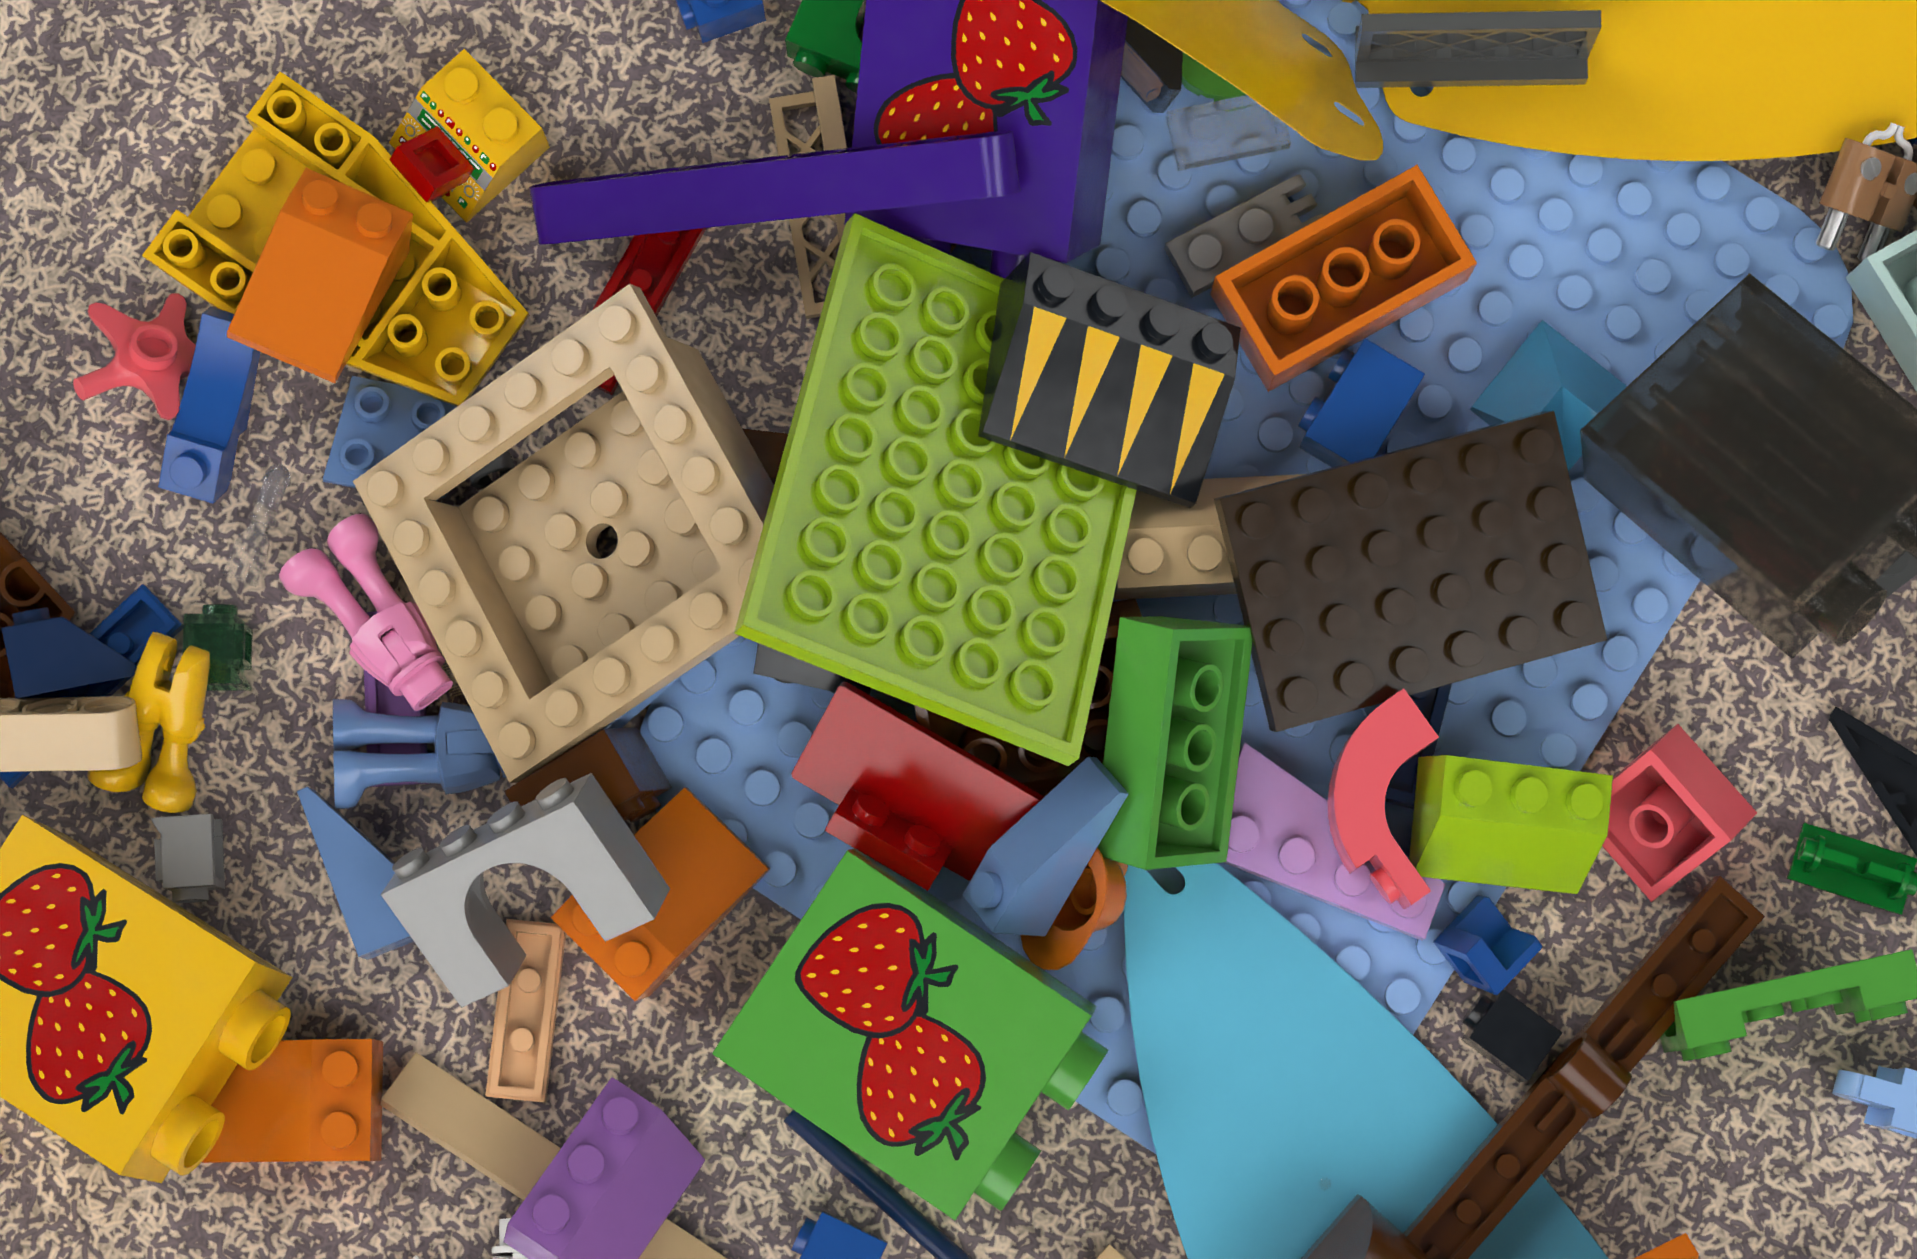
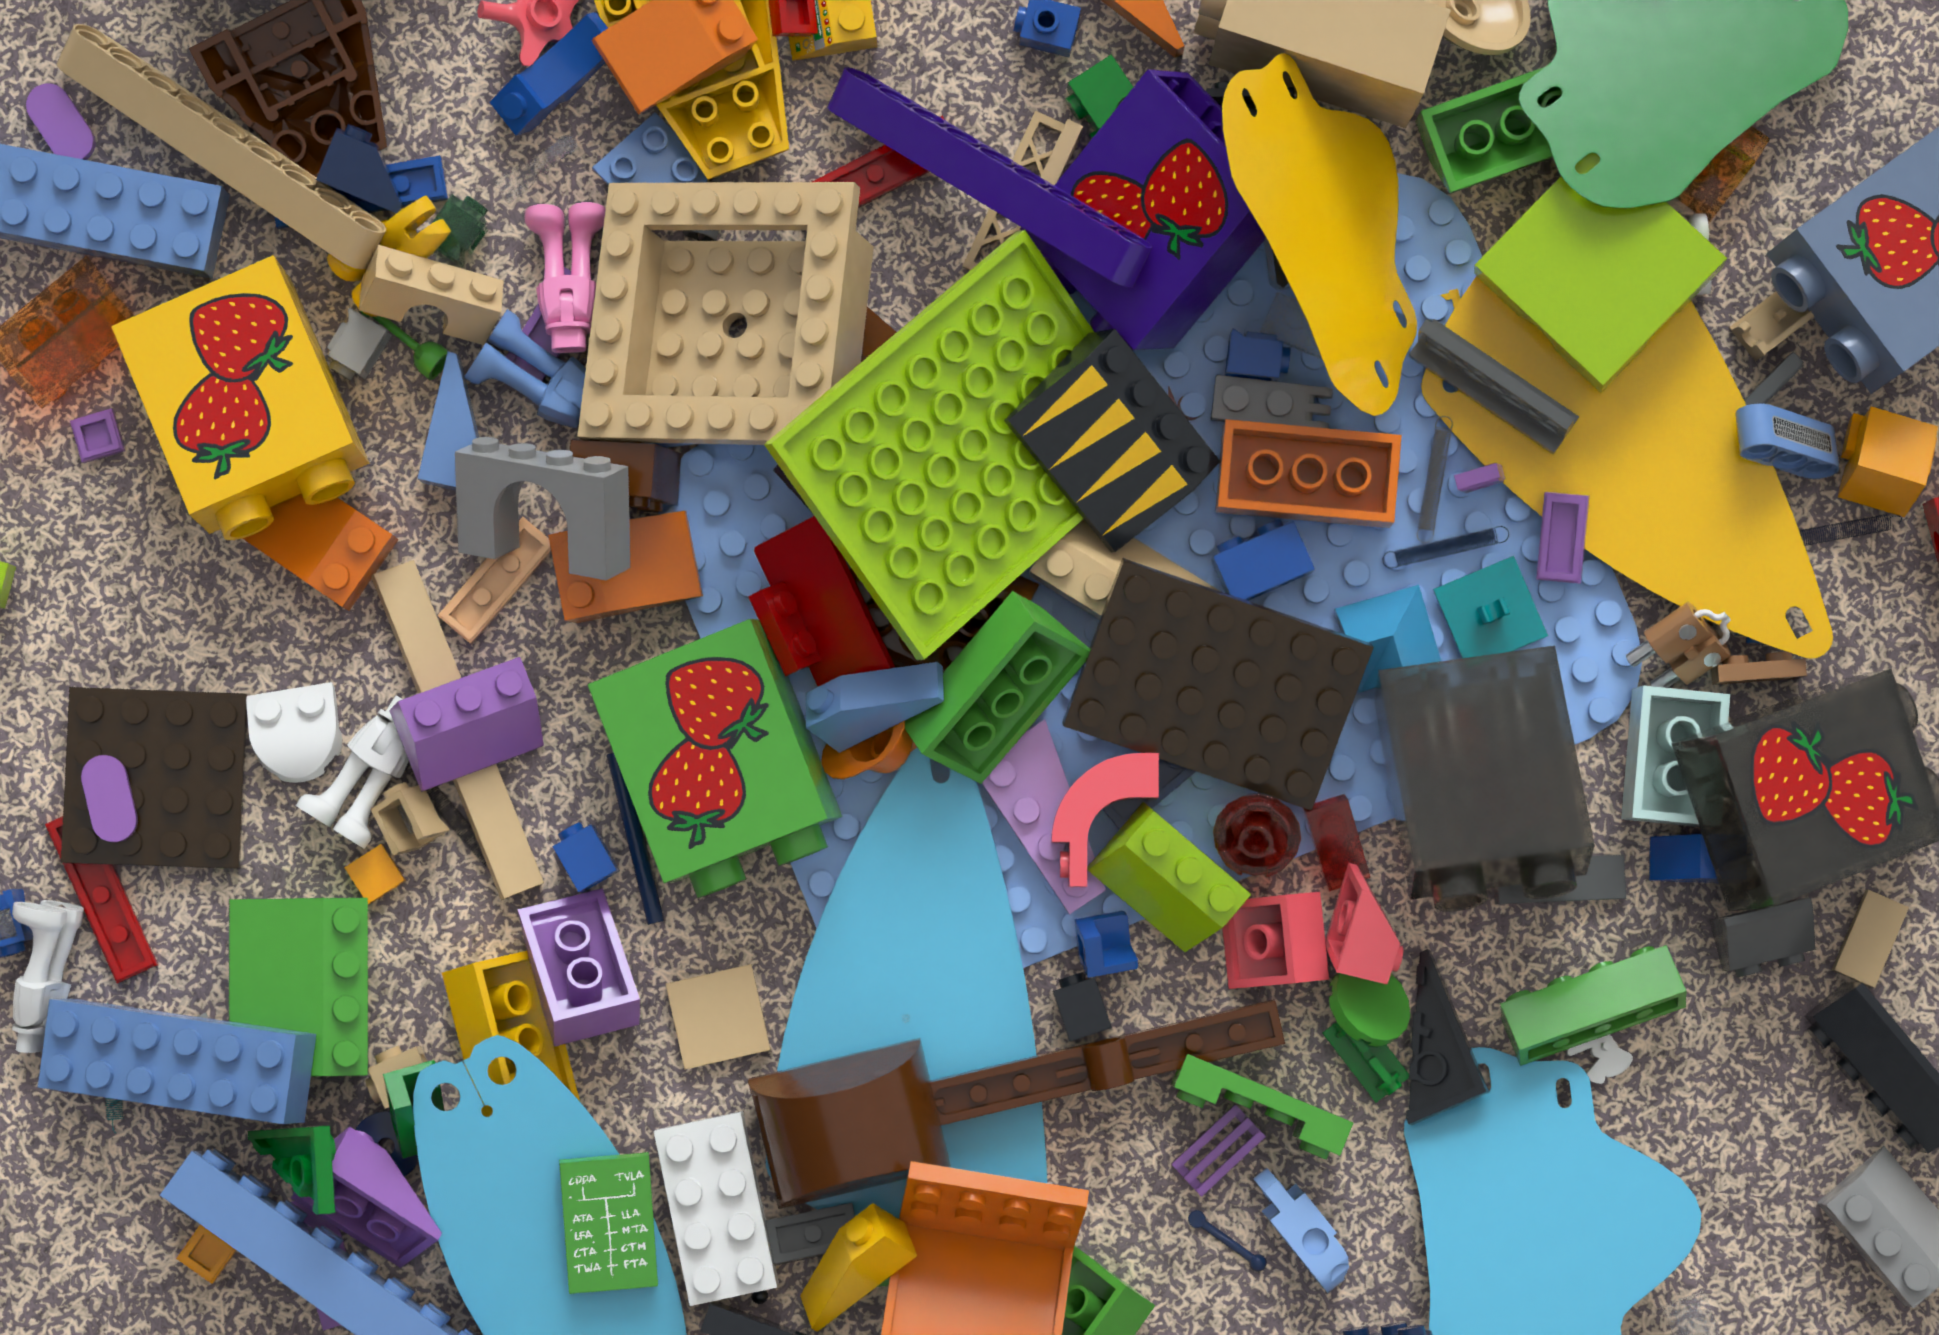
camera: 35 degrees right, 5 degrees up
(189, 745) = (403, 280): none -> tan arch
(279, 814) = (427, 357): none -> bright green hinge
(1194, 193) = (1256, 356): none -> blue window
(1479, 187) = (1433, 479): none -> light grey piece
(1528, 159) = (1480, 478): none -> medium lavender tile
(1546, 261) = (1449, 545): none -> dark blue piece
(1571, 706) = (1257, 835): none -> clear red cone
(1638, 296) = (1490, 610): none -> teal piece
(1656, 658) = (1335, 839): none -> clear red plate
(1660, 163) = (1562, 537): none -> medium lavender tile
(1759, 733) = (1360, 934): none -> coral slope
(1792, 1096) = (1245, 1124): none -> medium lavender tile
(1802, 1182) = (1197, 1219): none -> dark blue hinge
(1820, 808) = (1370, 1008): none -> bright green tile

